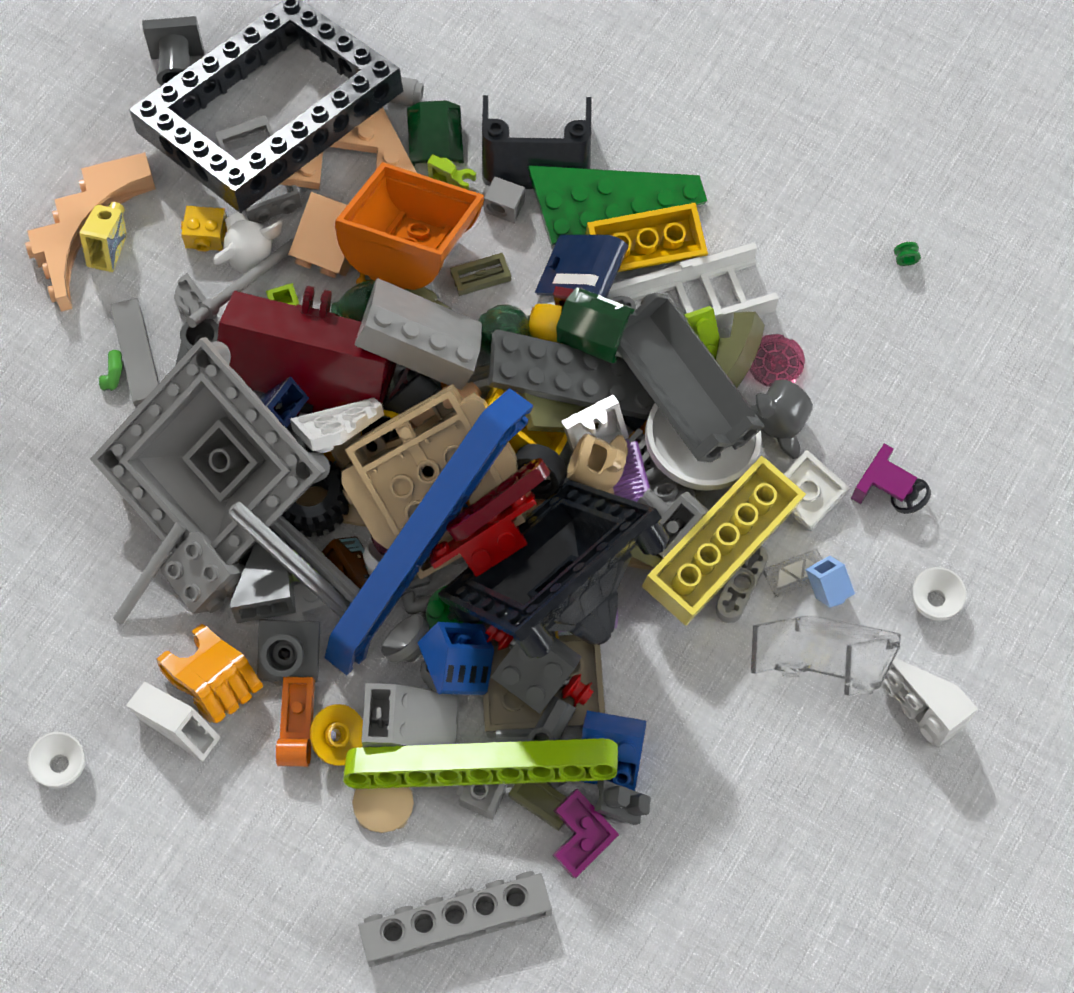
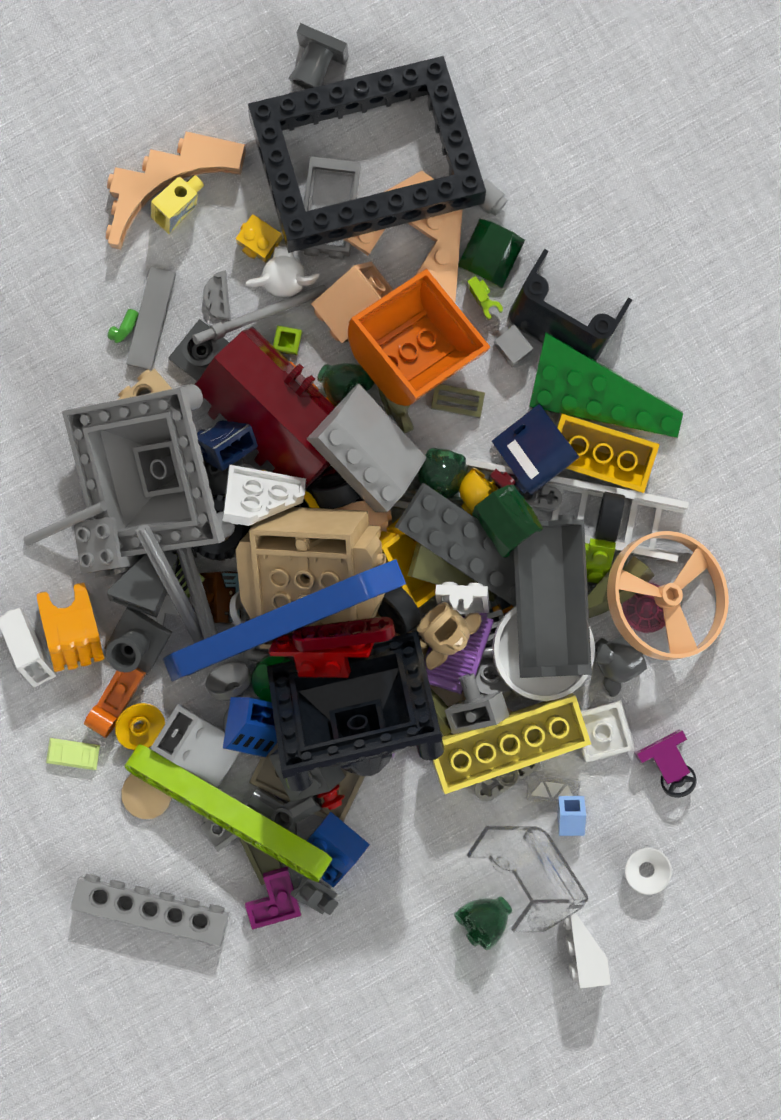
camera: 30 degrees right, 20 degrees up
(281, 806) = (73, 754): none -> yellowish green tile
(689, 286) = (609, 516): none -> black tyre
(792, 330) = (668, 597): none -> light nougat piece
(809, 733) = (484, 920): none -> clear green piece

